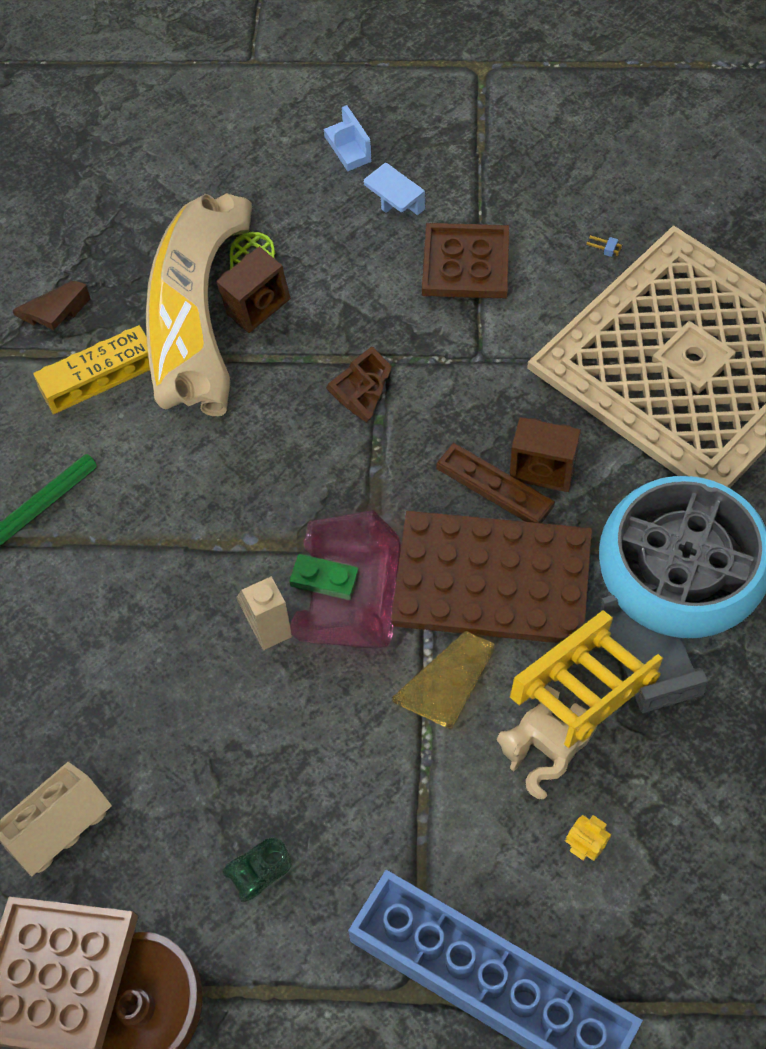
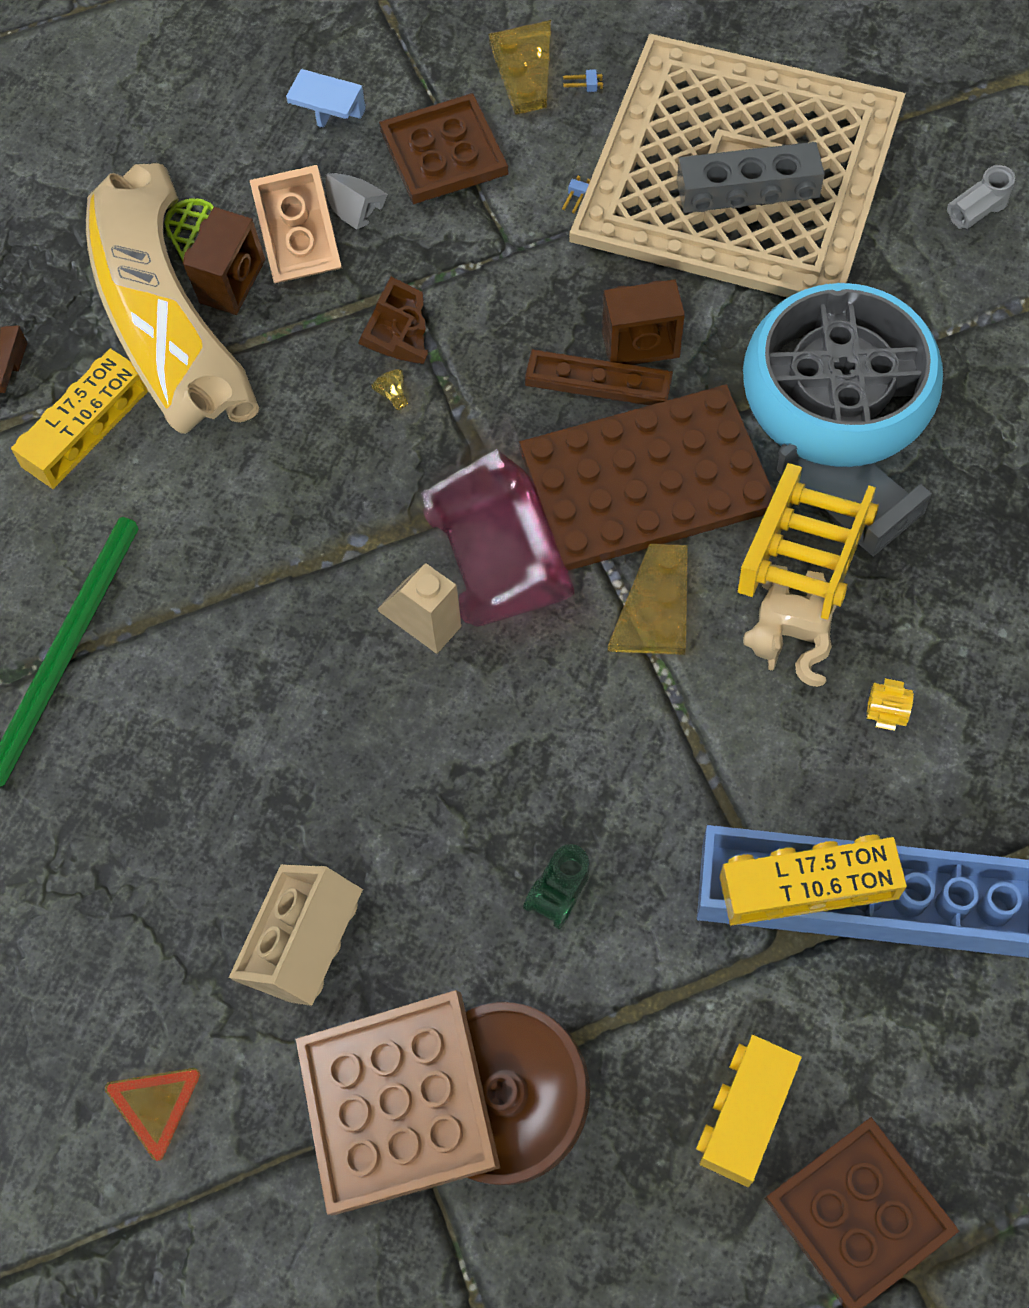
camera: 25 degrees left, 5 degrees up
(324, 279) = (295, 224): none -> light nougat slope
(324, 577) = (467, 547): green plate -> none
(331, 431) = (391, 386): none -> clear yellow rock
(349, 141) = (242, 59): light blue panel -> none
(378, 275) = (353, 198): none -> light grey brick
(439, 948) = (811, 880): none -> yellow brick
(554, 327) = (578, 189): none -> piece
(563, 216) = (524, 64): none -> clear yellow wing
(669, 363) = (750, 177): none -> dark grey brick

